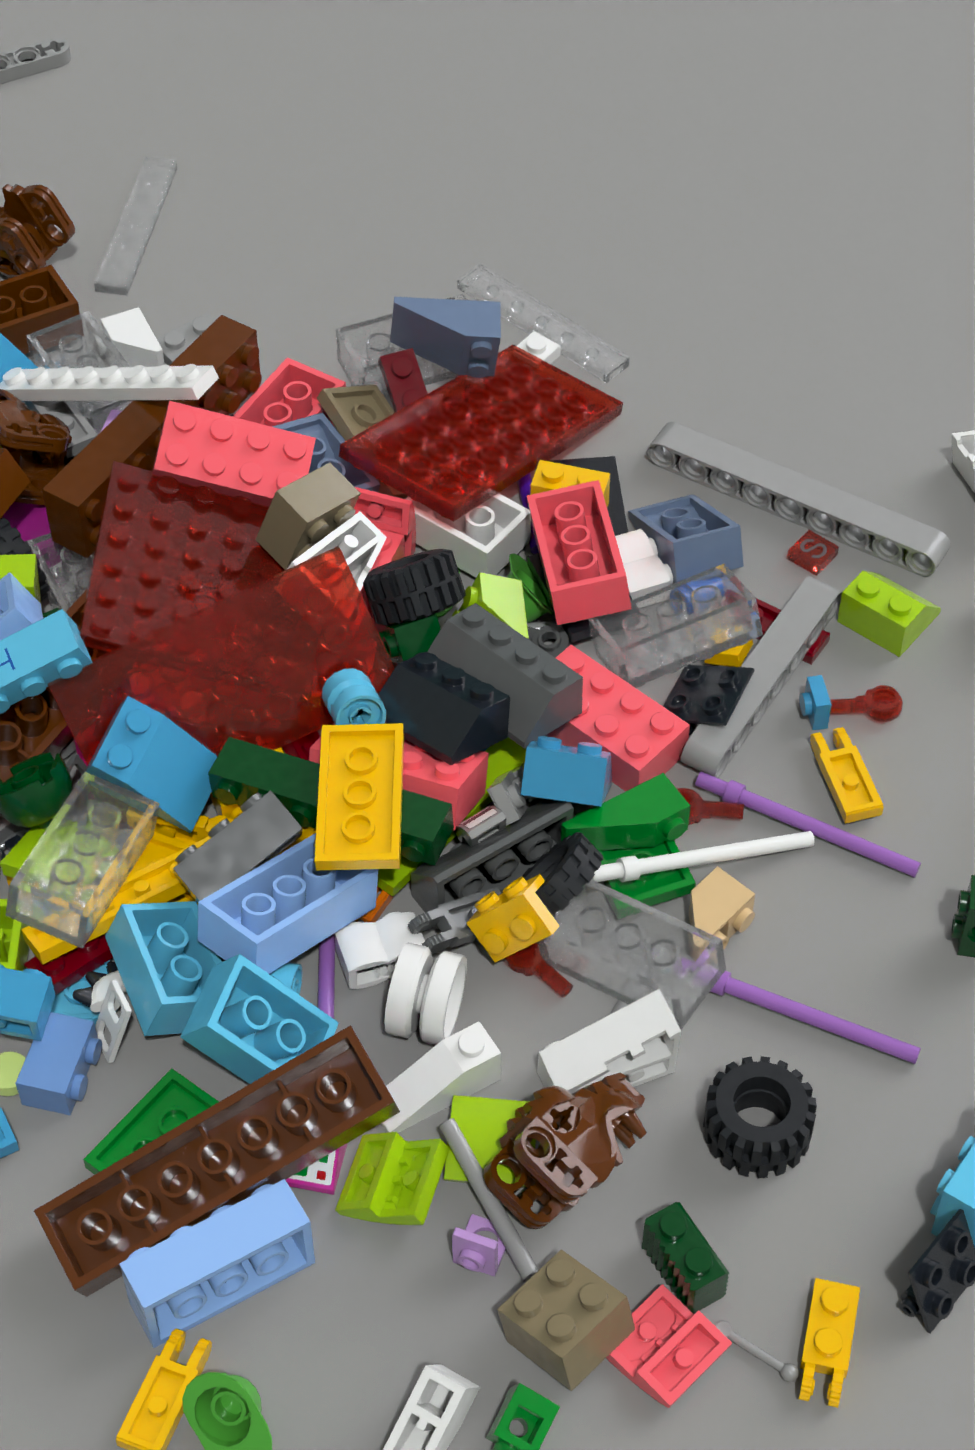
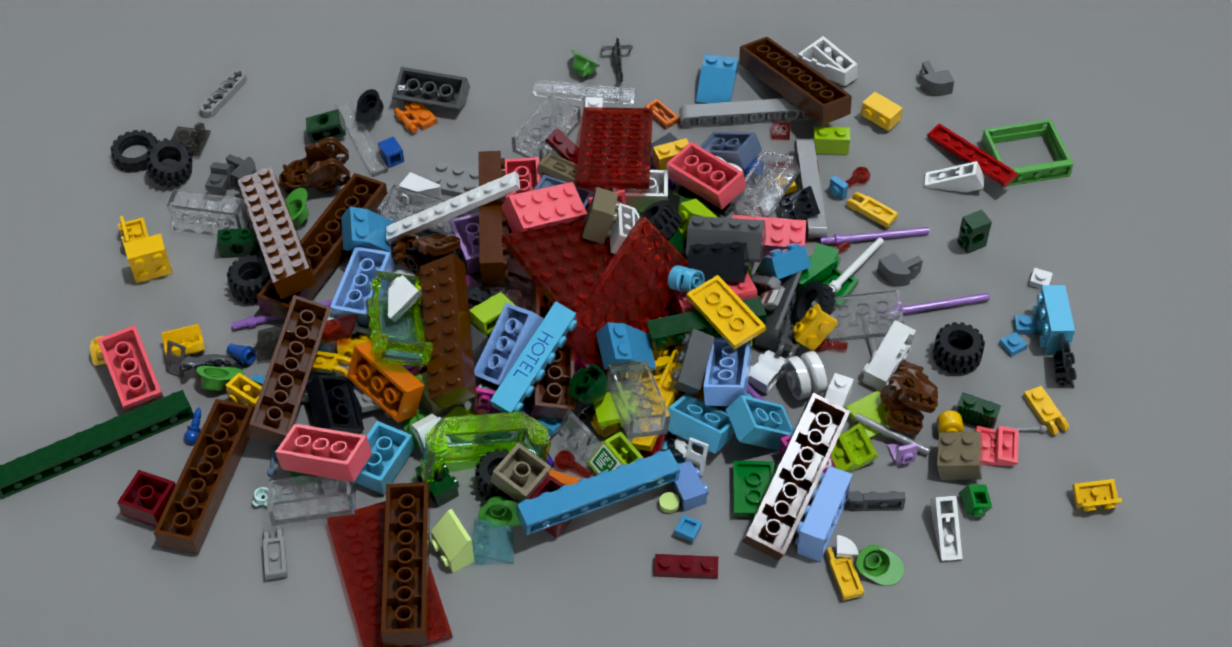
camera: 35 degrees left, 0 degrees up
(94, 179) = (325, 125): none -> dark green brick
(151, 265) = (391, 152): none -> blue brick
(187, 183) = (369, 106): none -> black piece
(196, 1349) = (845, 548): none -> white tile
(255, 229) = (420, 114): none -> orange plate
(300, 199) = (431, 88): none -> dark grey slope
(343, 1302) = (875, 501): none -> dark grey hinge
(449, 332) = (573, 112): sand blue slope -> none
(580, 273) = (583, 64): none -> bright green piece
(611, 1248) = (949, 422): none -> yellow head
(637, 439) = (660, 117): none -> orange tile
(651, 283) = (618, 56): none -> dark grey piece
(721, 905) = (874, 280): tan slope -> none
(778, 410) = (717, 79): none -> dark azure slope
(784, 915) = (898, 272): none -> dark grey brick
(883, 1175) = (1013, 344): none -> dark azure plate
(898, 476) = (795, 80): none -> reddish brown brick
(938, 1149) = (1024, 324): none -> dark azure plate

